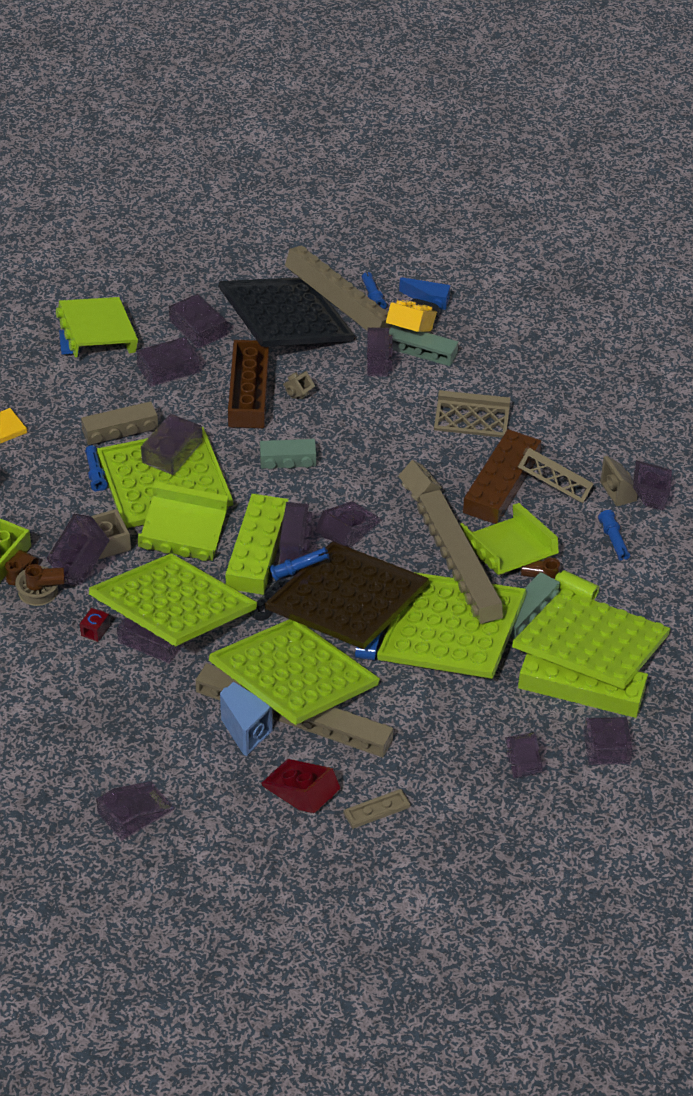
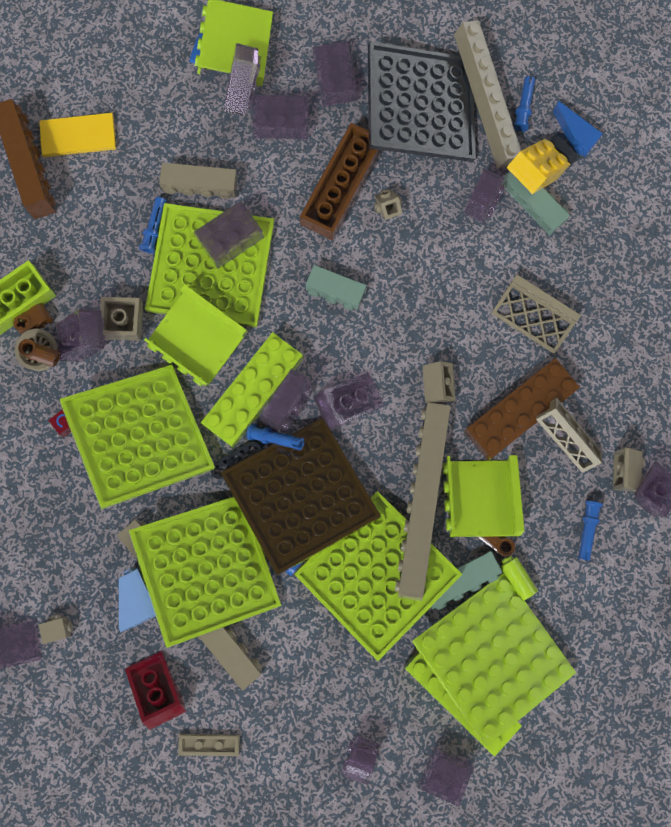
camera: 25 degrees right, 35 degrees up
(122, 339) = (242, 80): none -> clear purple brick
(176, 775) = (55, 629): none -> dark tan brick

